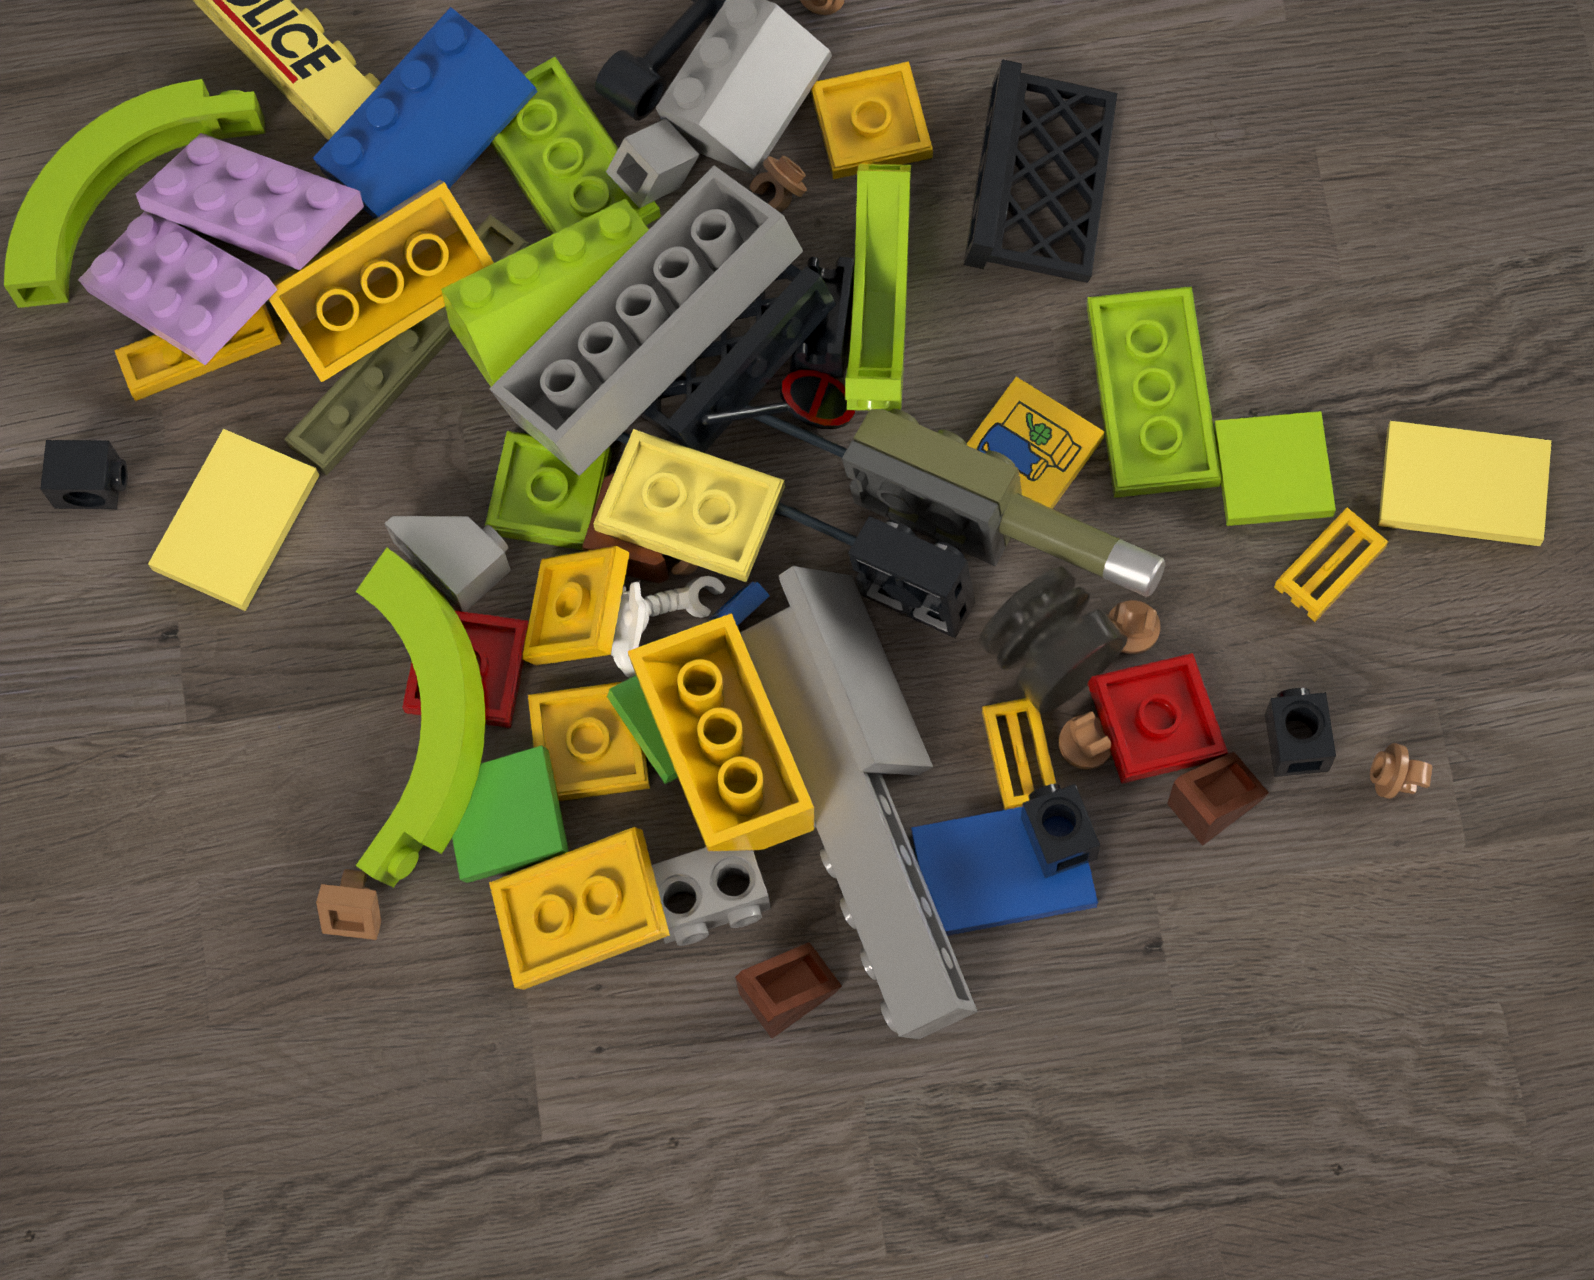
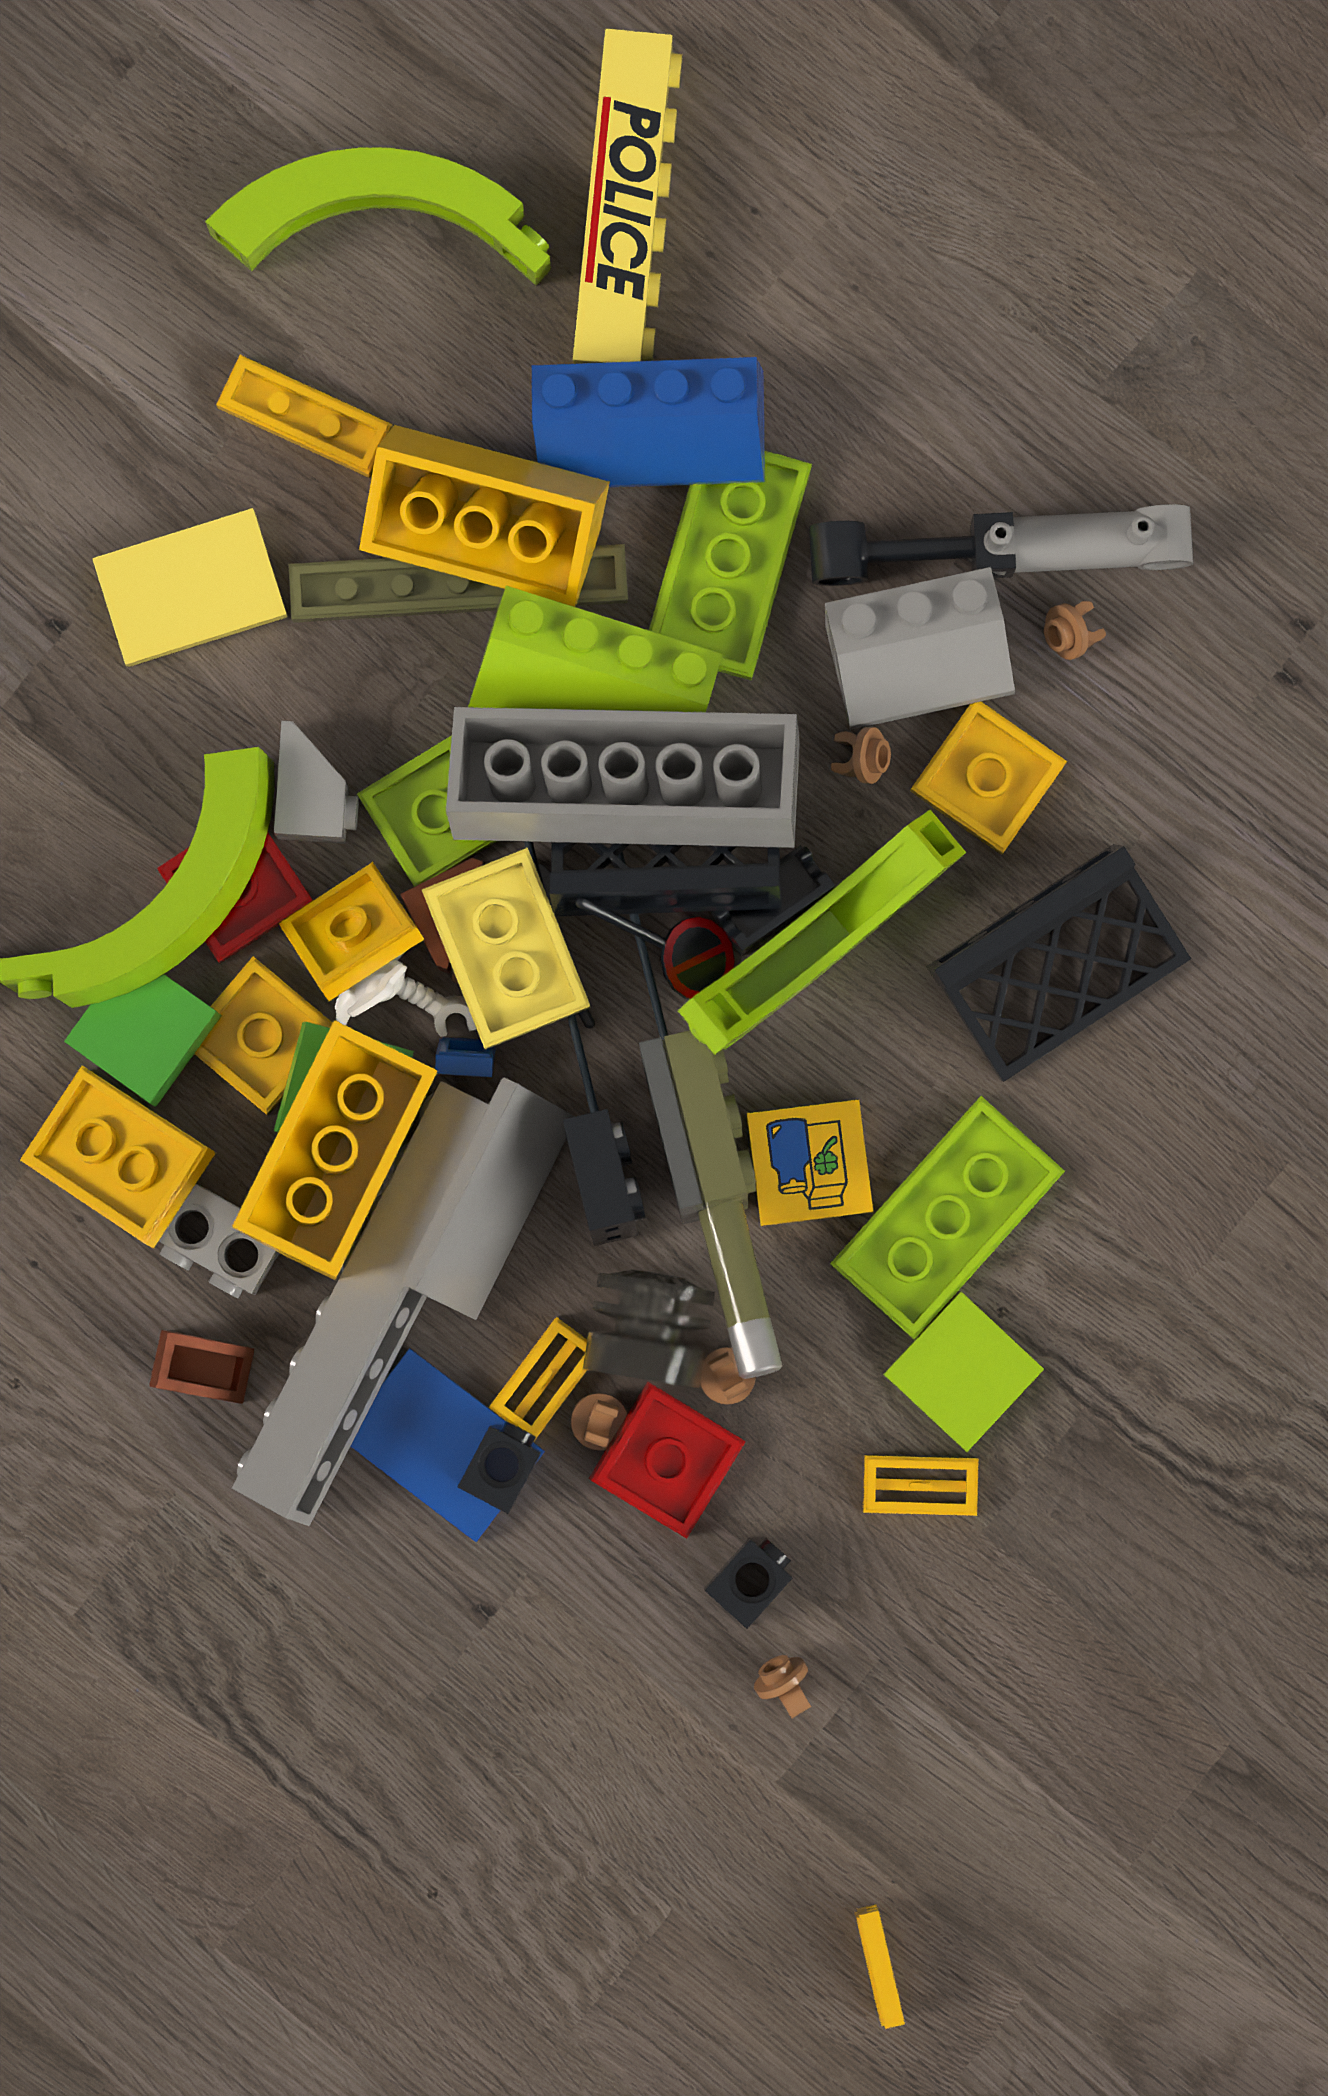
camera: 40 degrees right, 15 degrees up
(82, 474) = (116, 436): black brick -> none
(177, 285) = (329, 361): lavender plate -> none
(250, 201) = (453, 347): lavender plate -> none
(652, 163) = (780, 640): light grey brick -> none
(1215, 796) = (646, 1561): copper slope -> none
(1465, 483) = (1084, 1533): light yellow tile -> none

